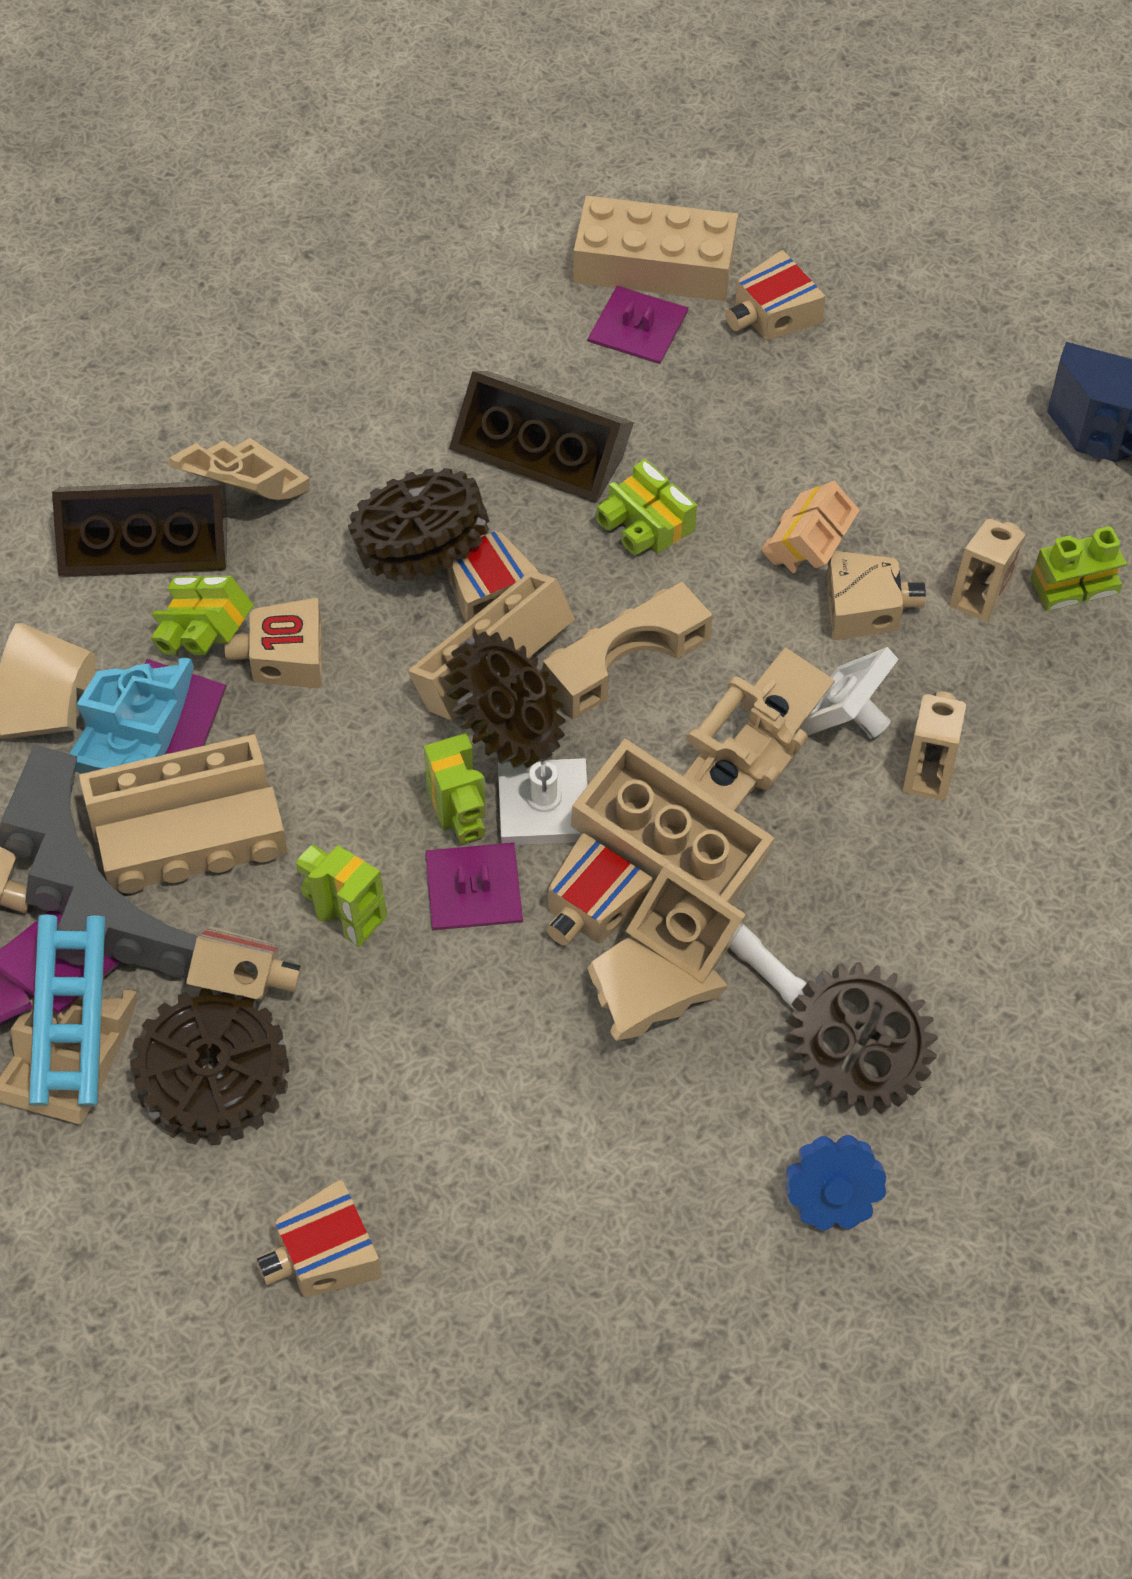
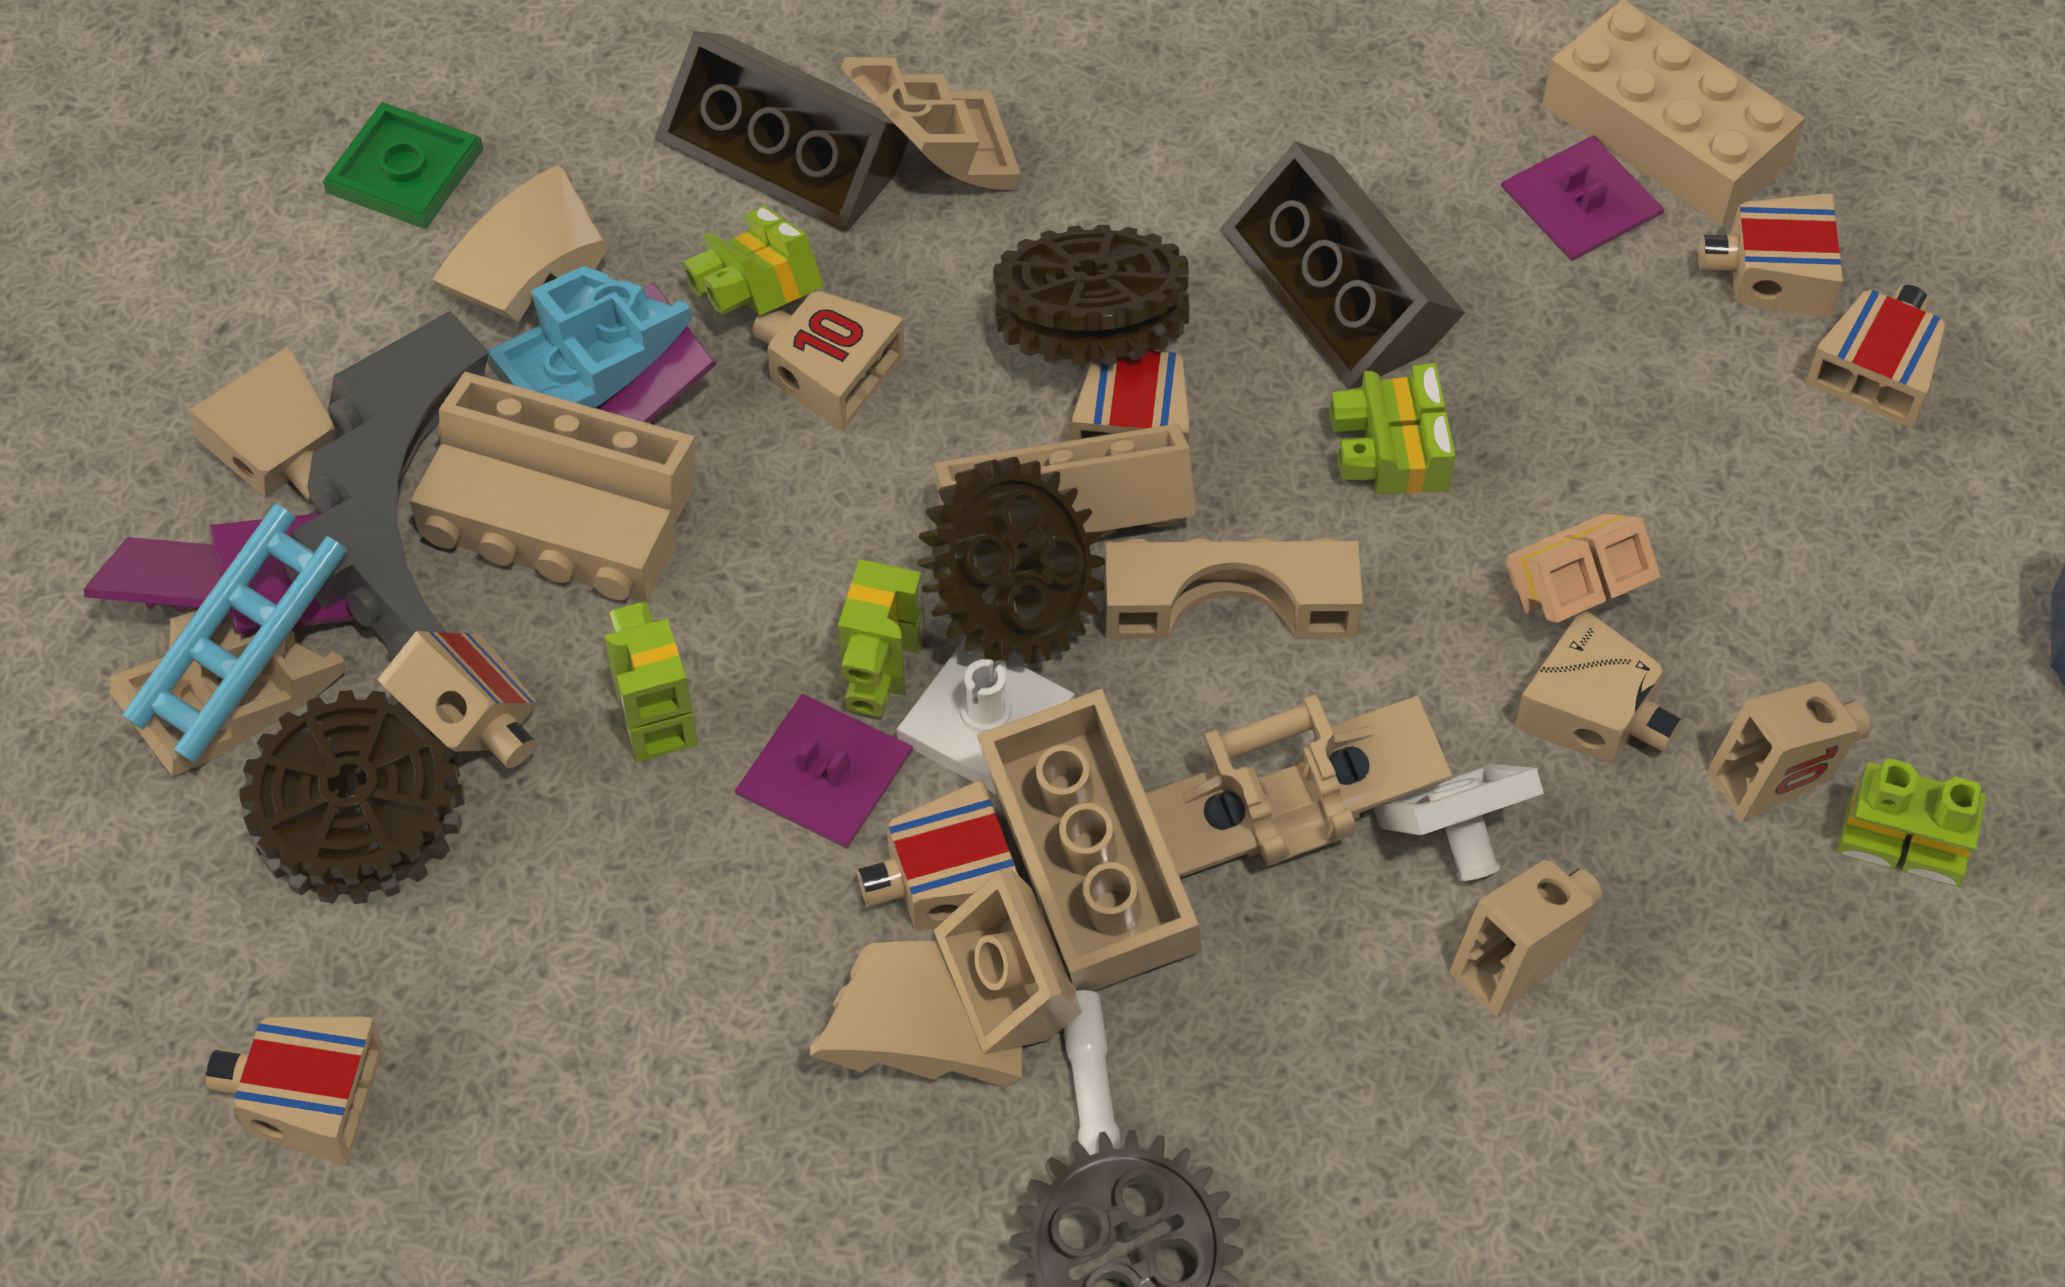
camera: 35 degrees right, 0 degrees up
(872, 327) = (1881, 354): none -> tan torso

